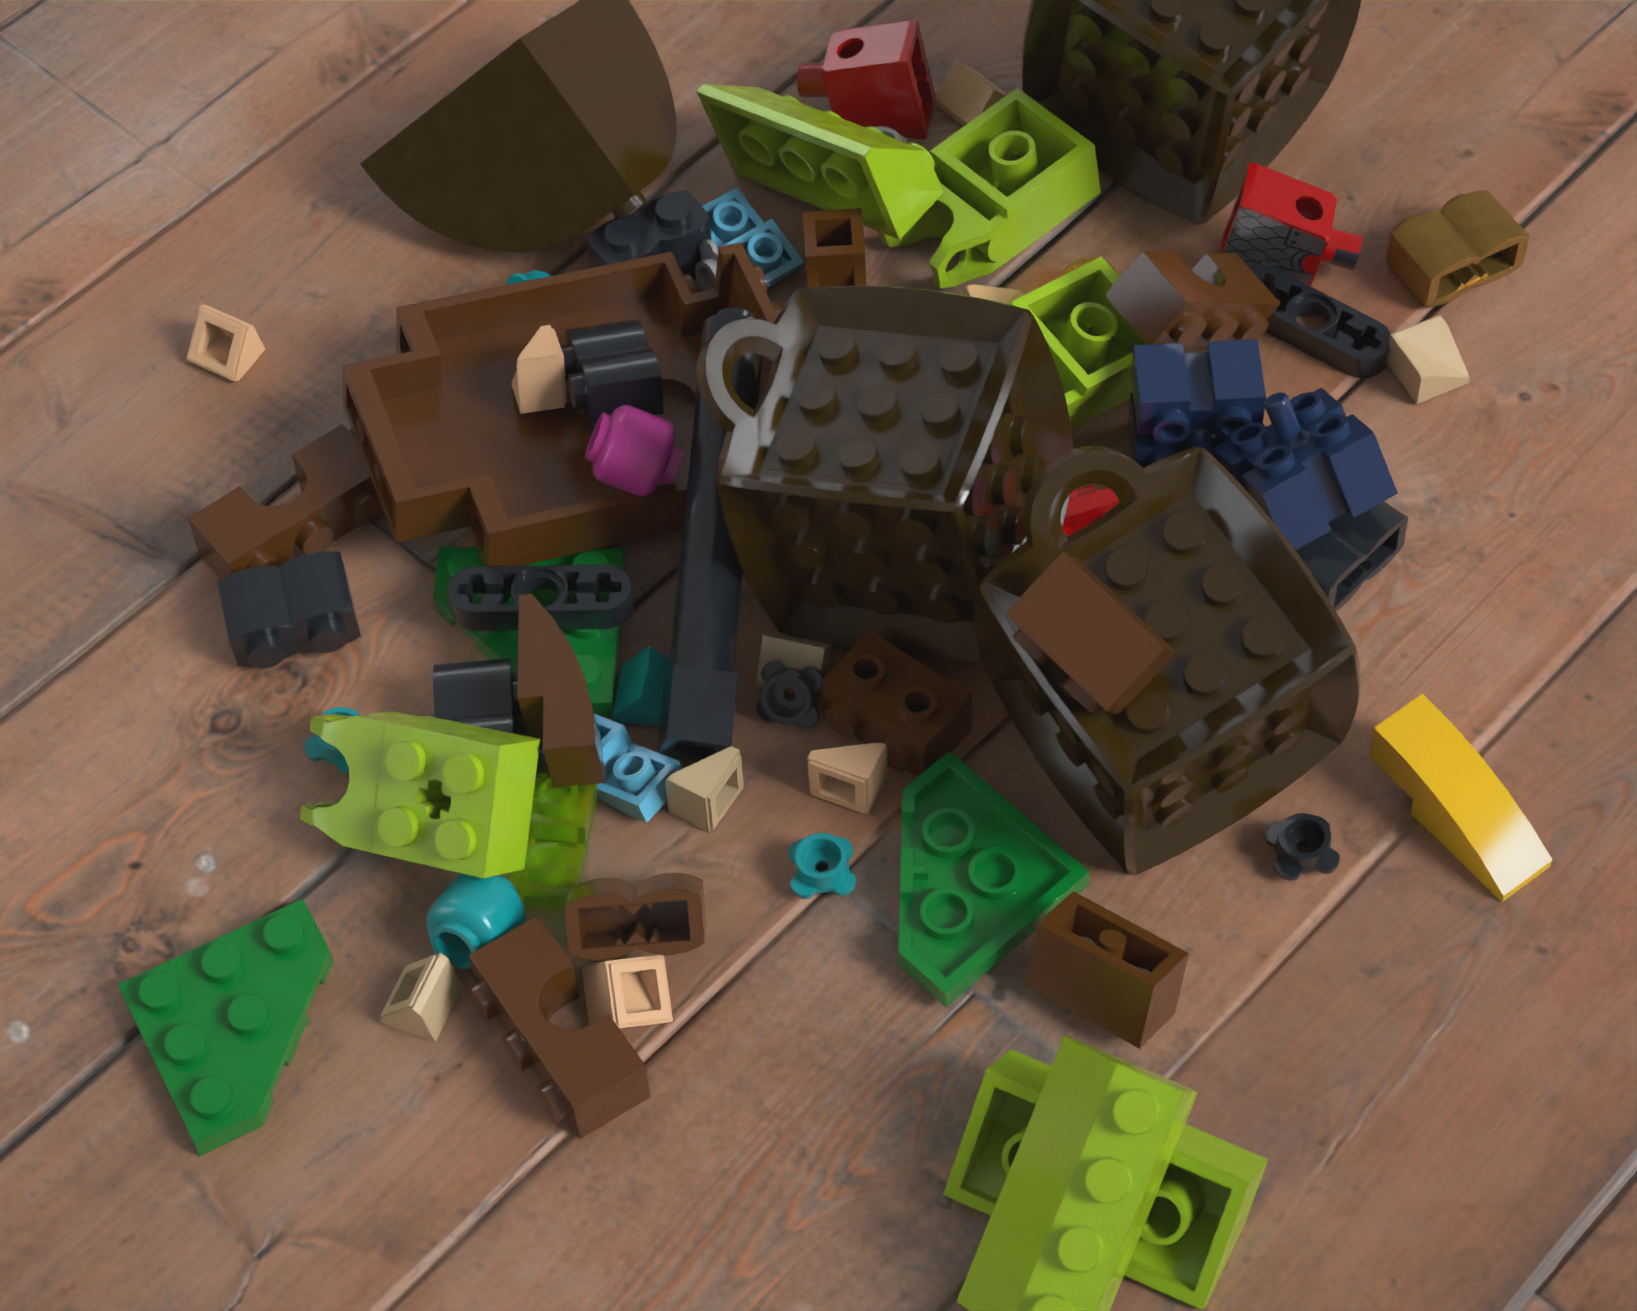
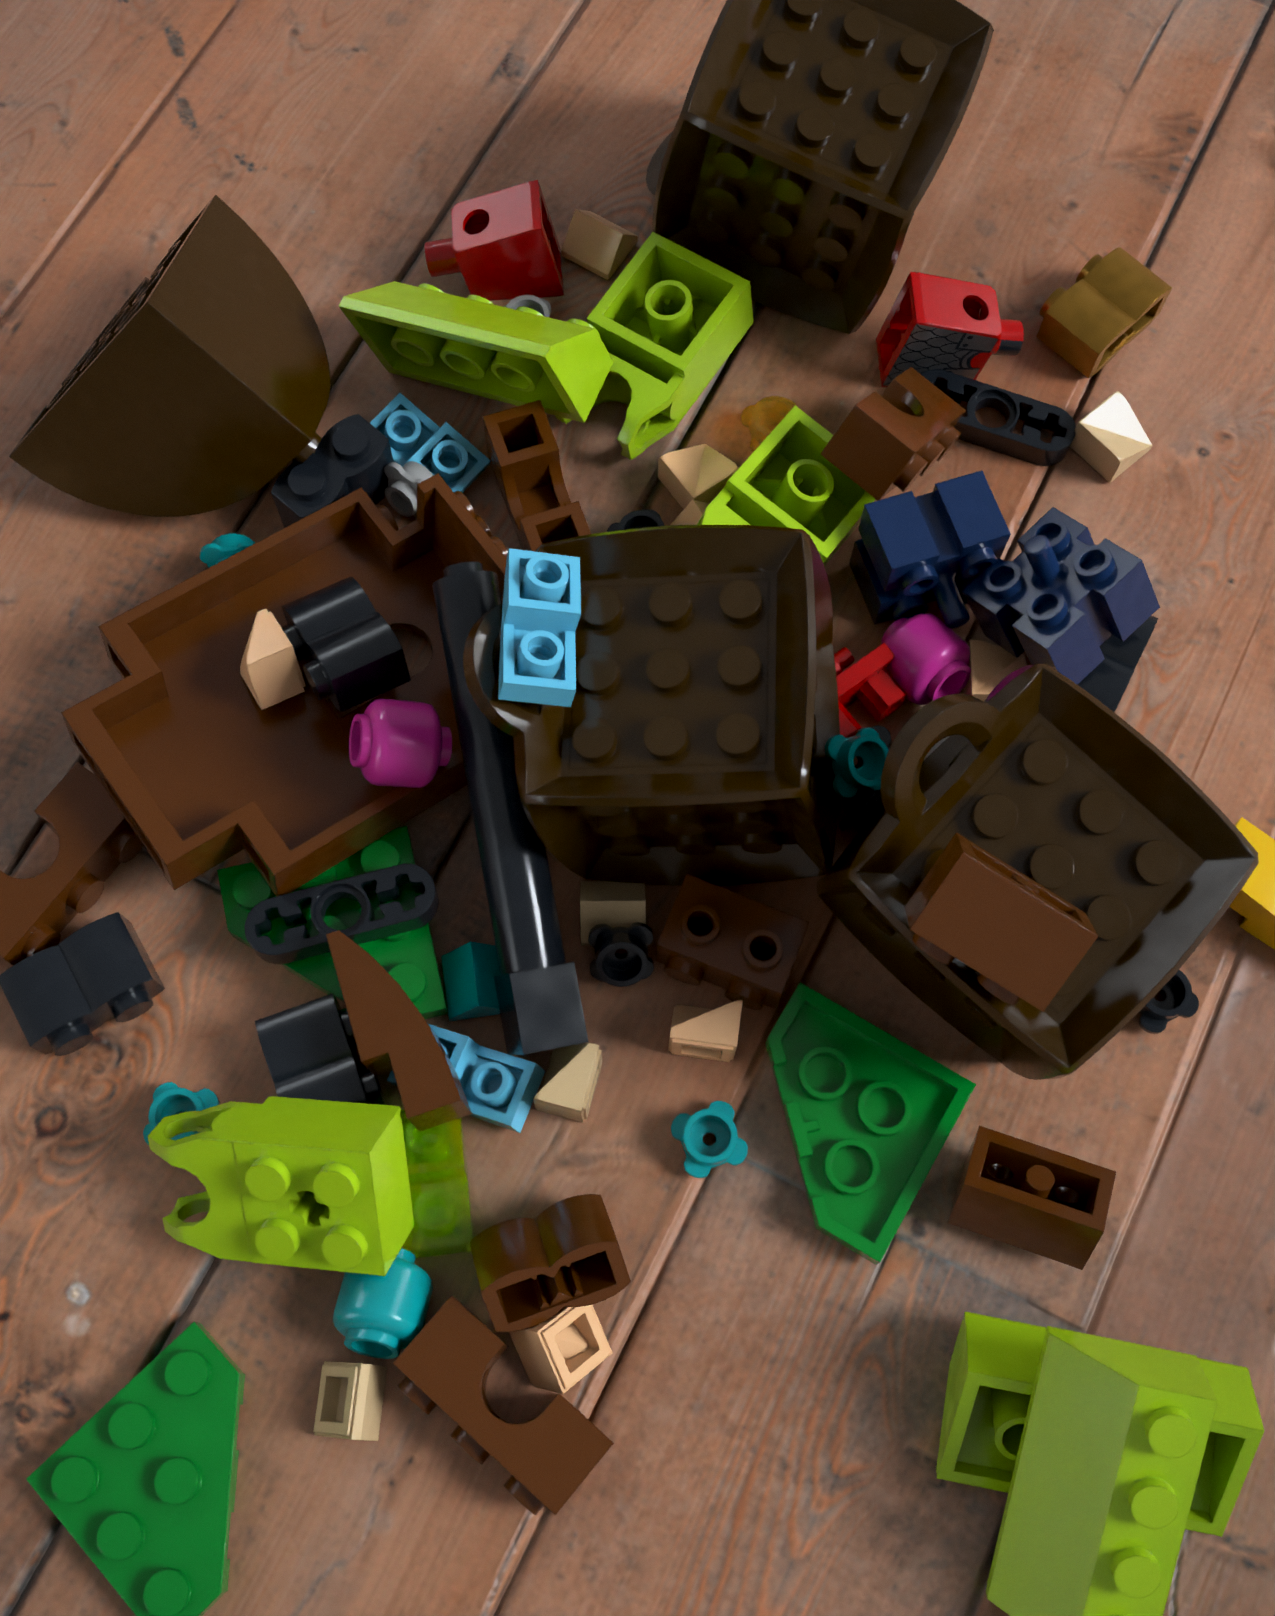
camera: 20 degrees left, 15 degrees up
(772, 341) = (539, 628): none -> medium azure slope

